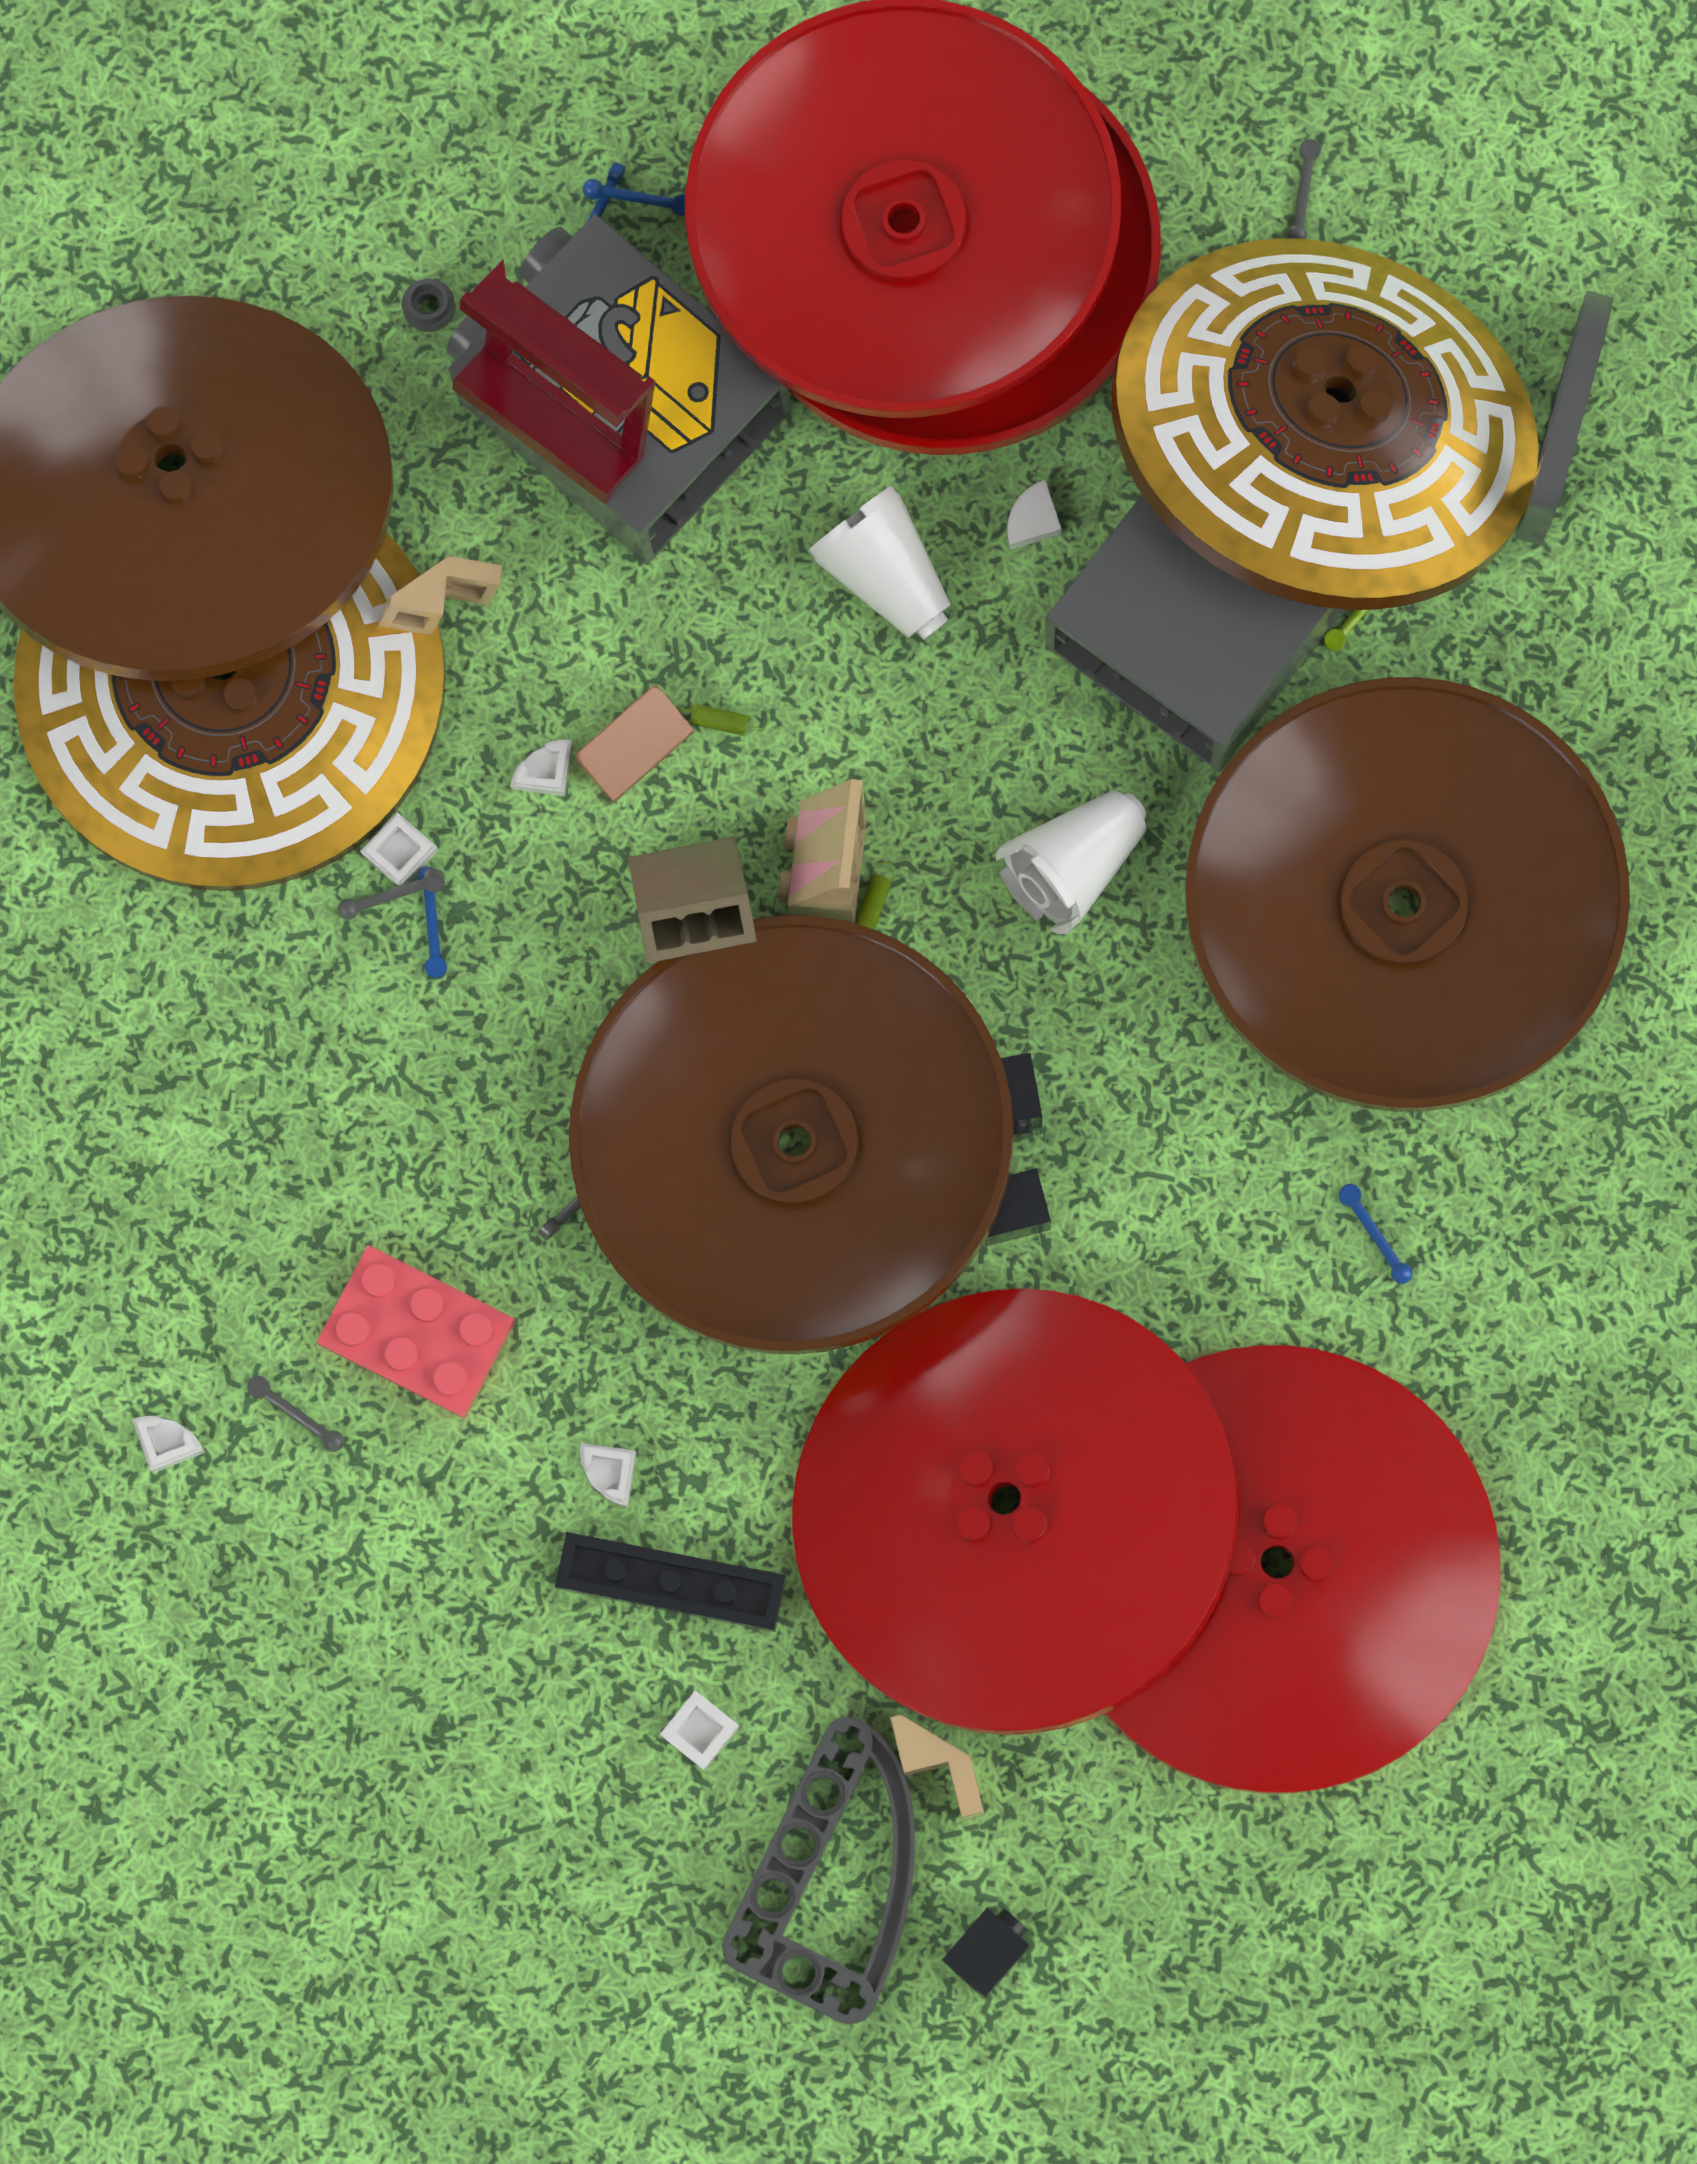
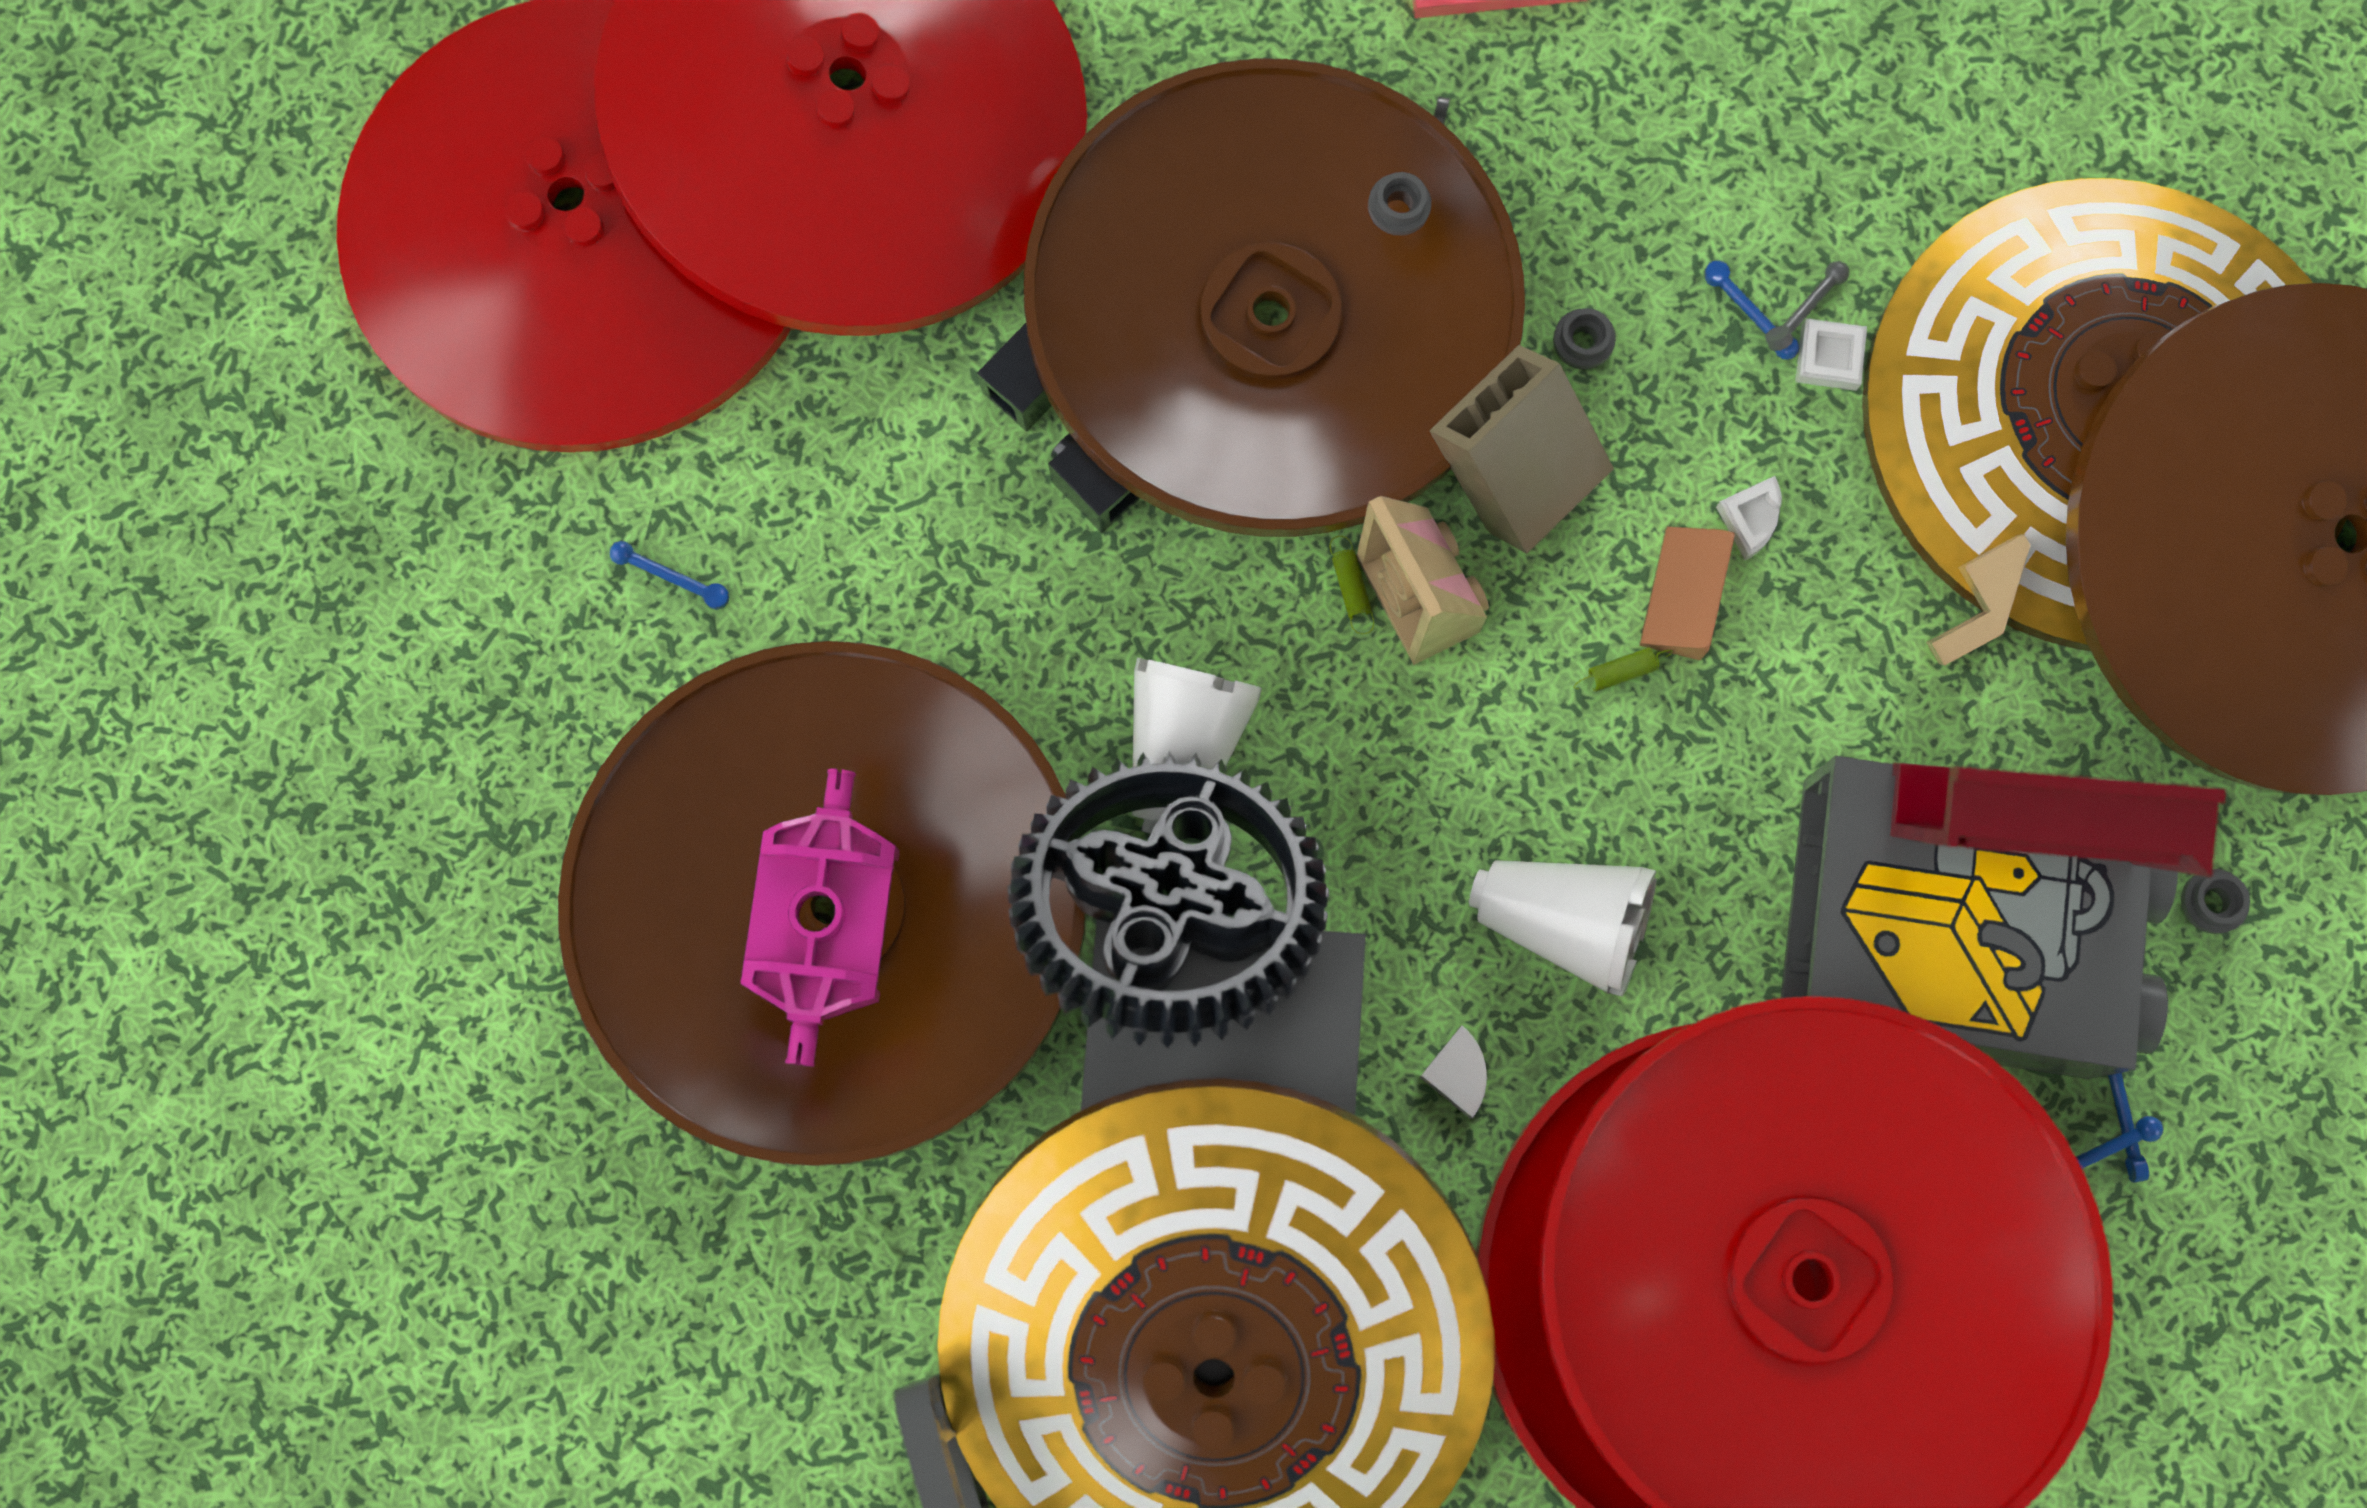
camera: 140 degrees right, 0 degrees up
(567, 961) = (1589, 322): none -> dark grey plate
(648, 1117) = (1400, 187): none -> dark grey plate
(1185, 736) = (1129, 887): none -> black gear
(1407, 913) = (828, 969): none -> dark pink plate

